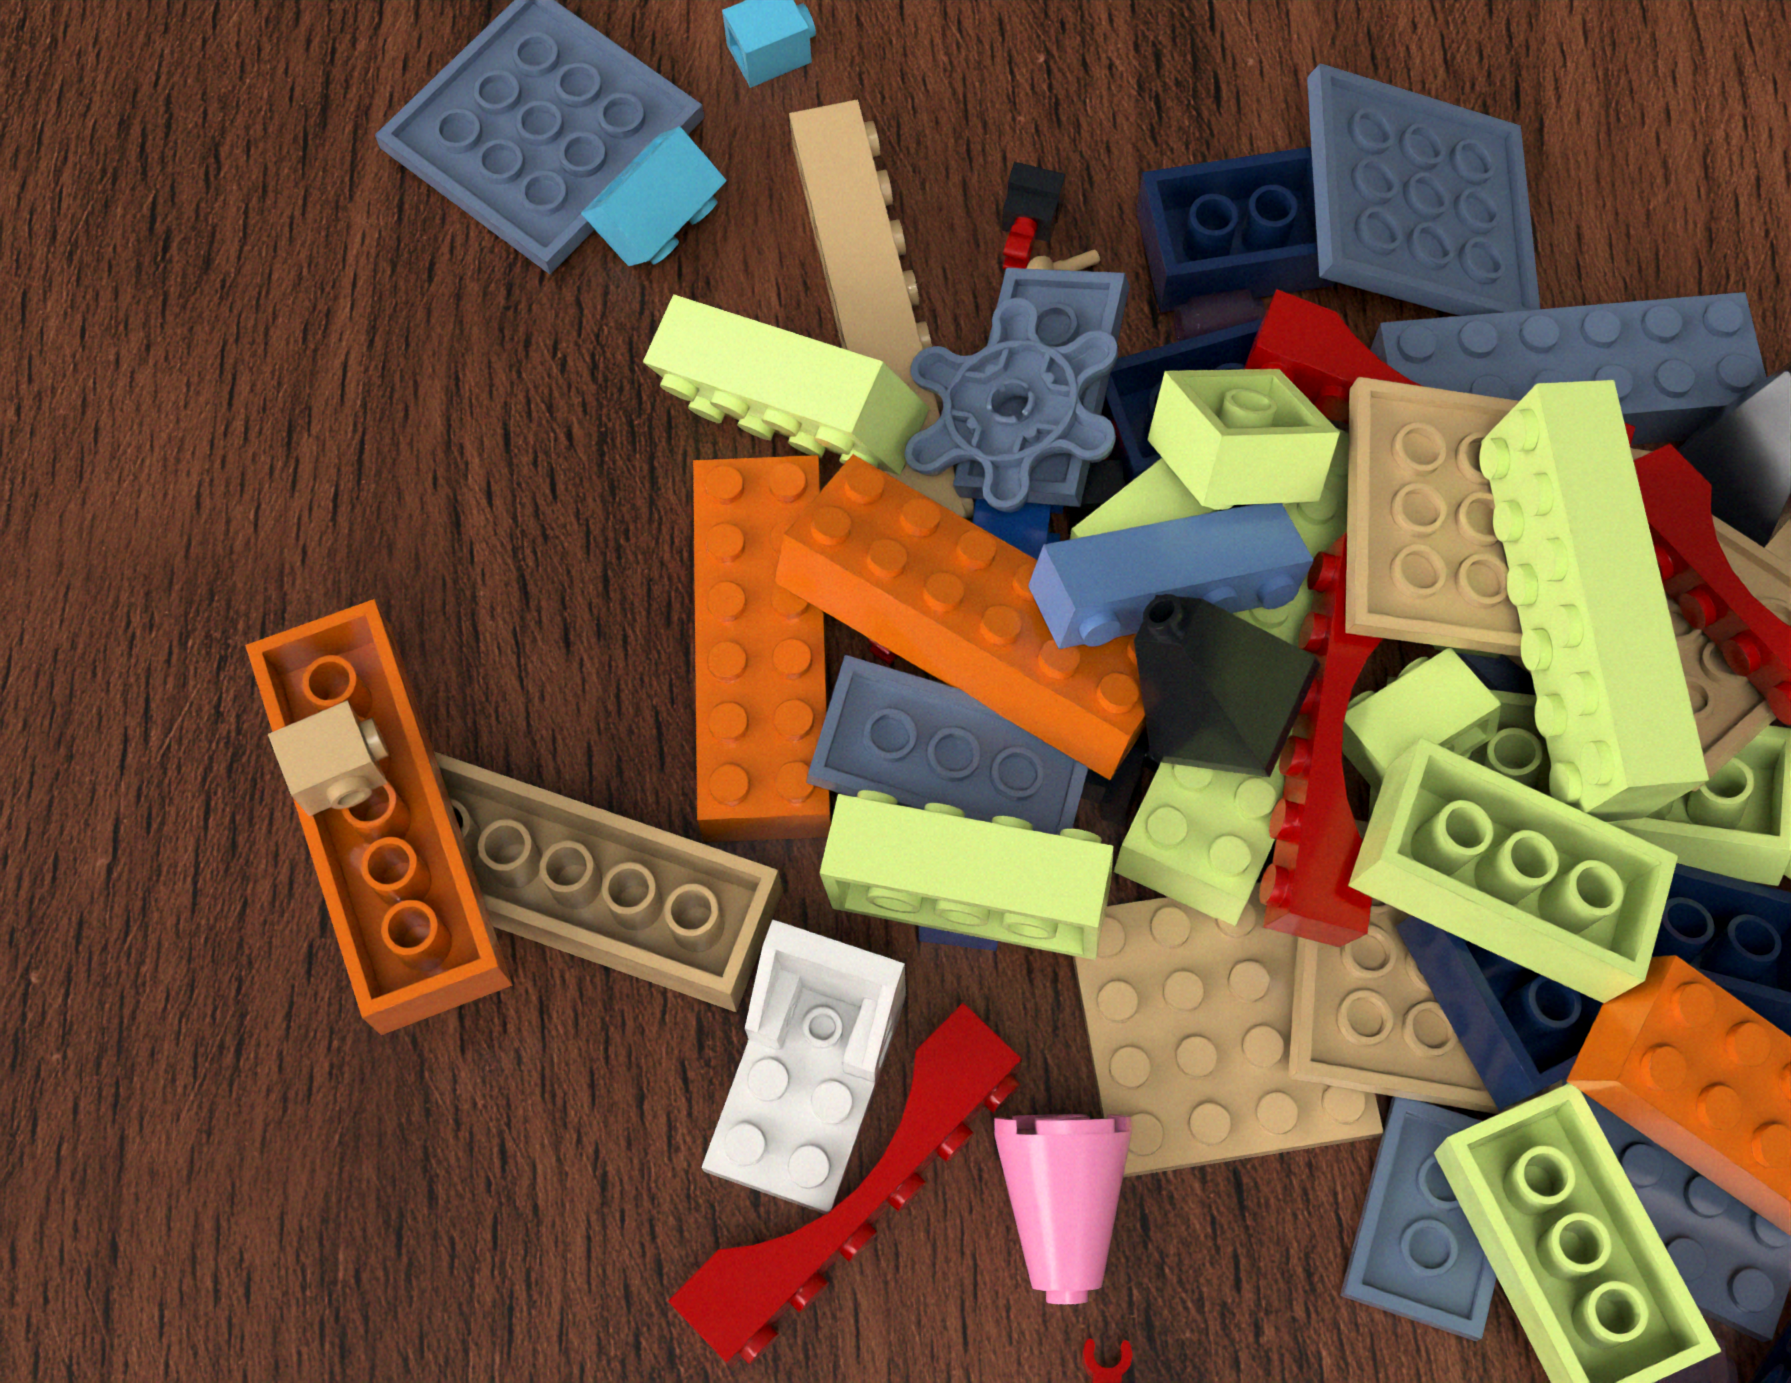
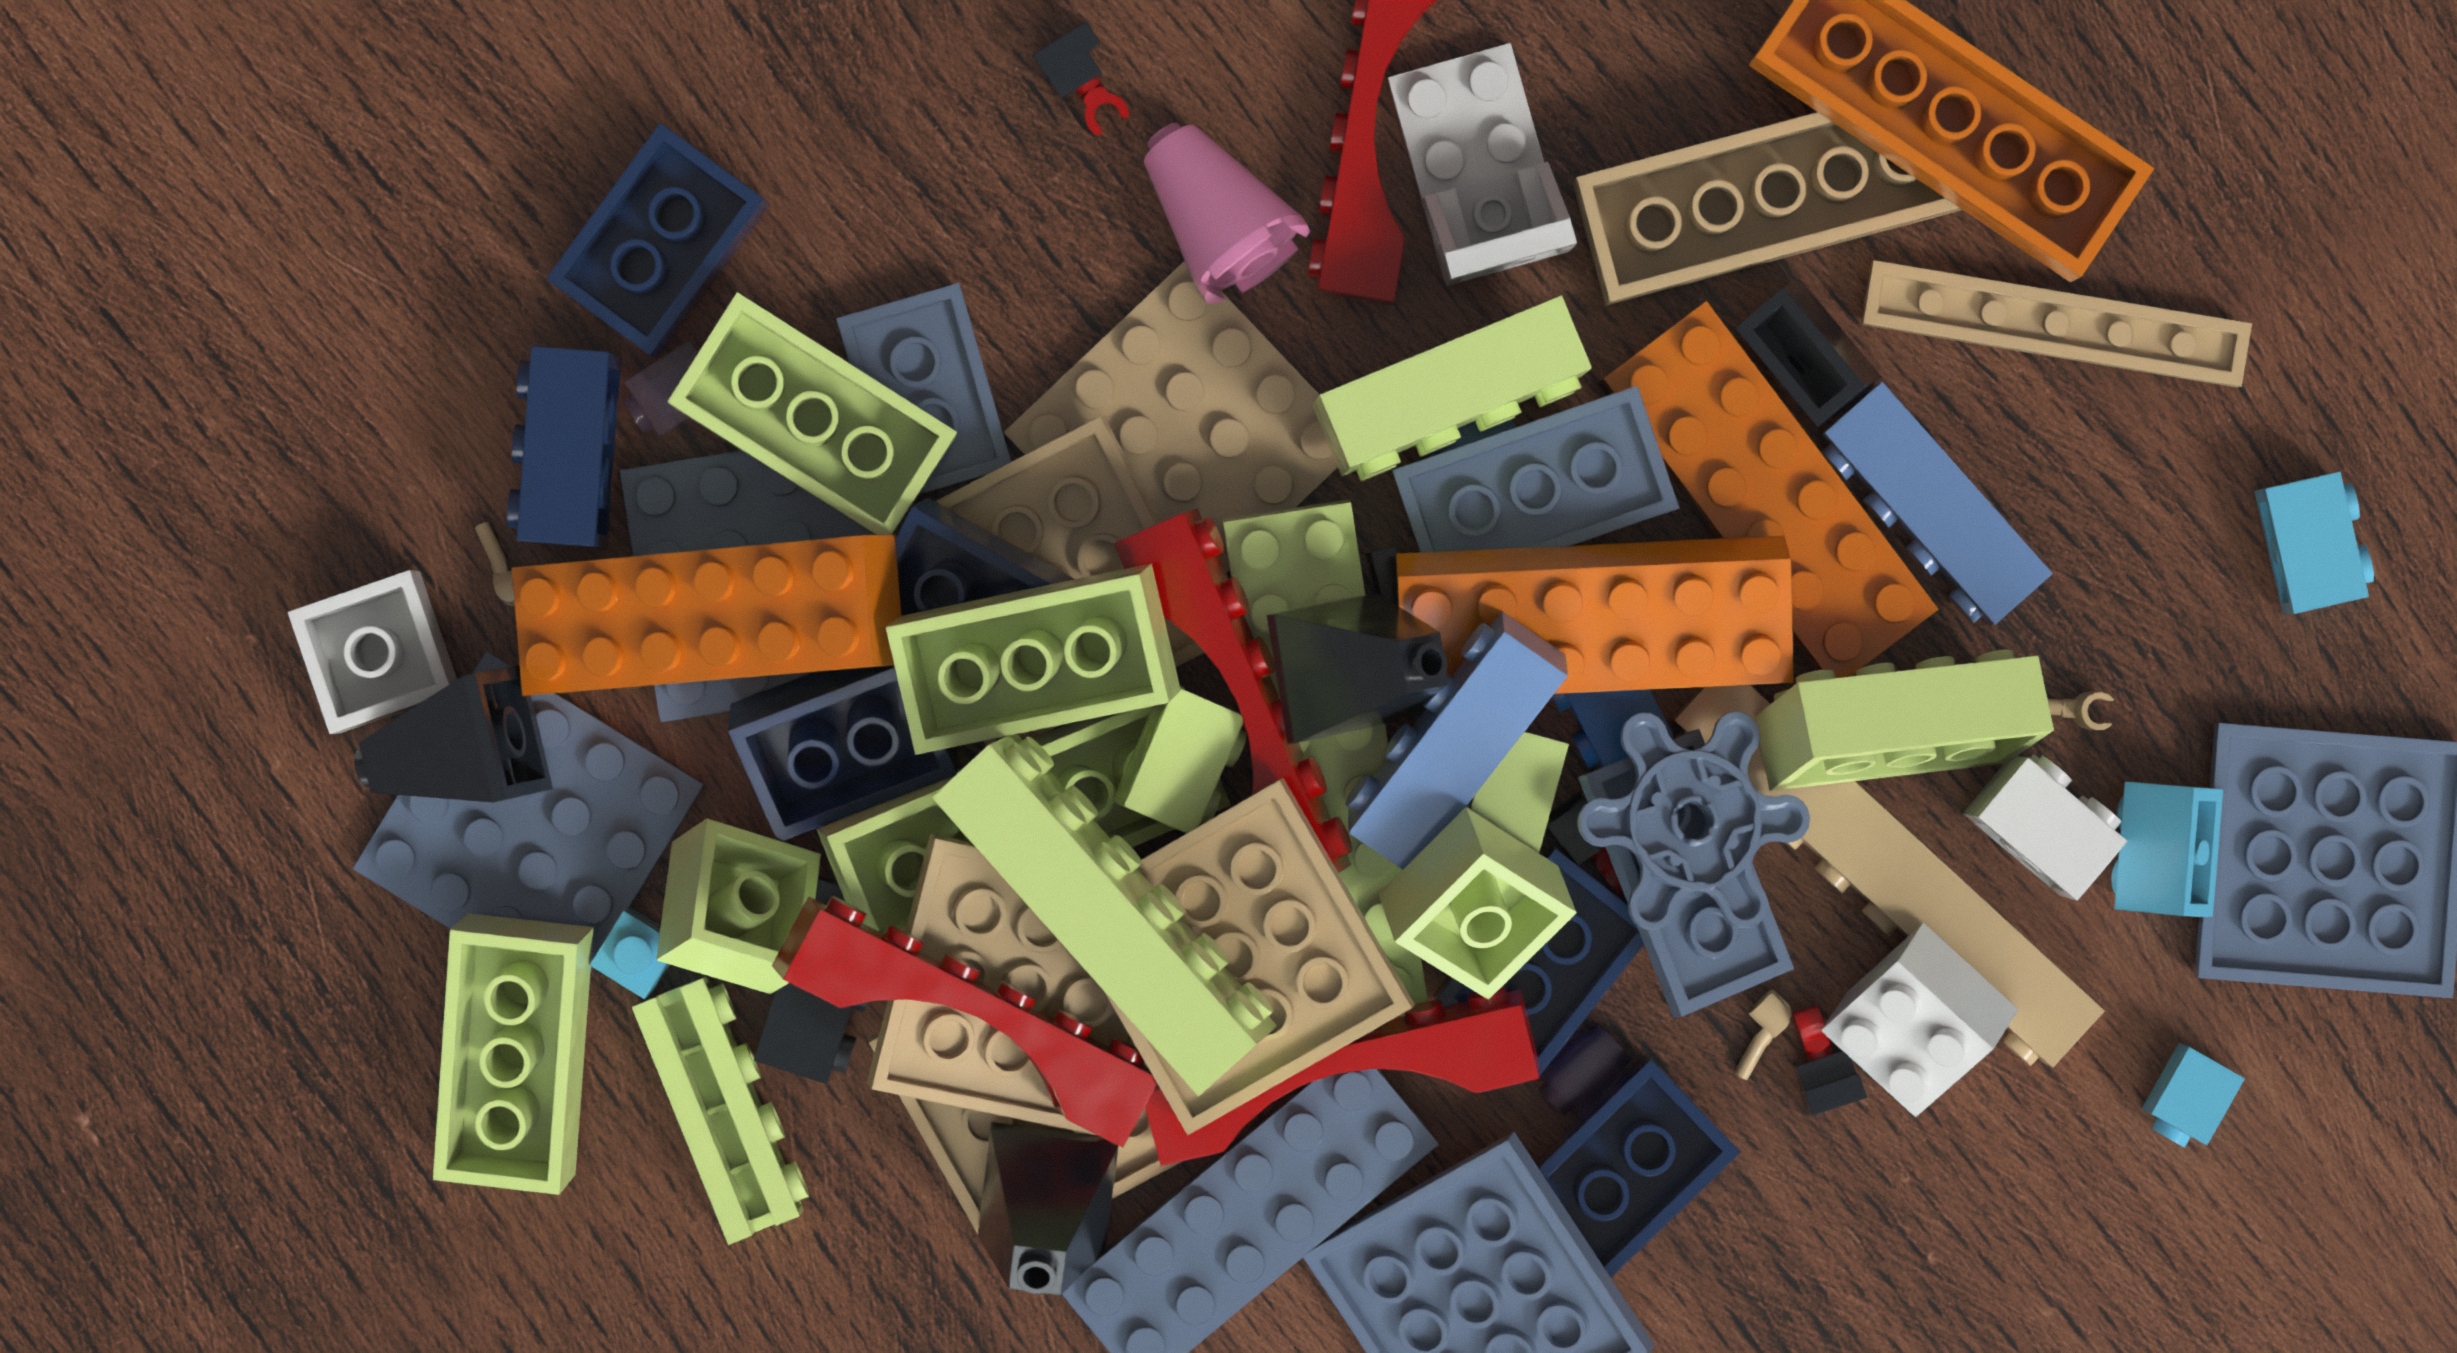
camera: 140 degrees right, 20 degrees up
(330, 758) = (2000, 118): tan brick -> none
(373, 343) = (2314, 542): none -> medium azure brick
(437, 633) = (2056, 324): none -> tan plate
(636, 346) = (2078, 708): none -> tan hand
(636, 557) = (1934, 505): none -> medium blue brick
(645, 729) = (1808, 353): none -> black brick
(731, 249) = (2046, 826): none -> white brick
(933, 186) = (1920, 1020): none -> white brick

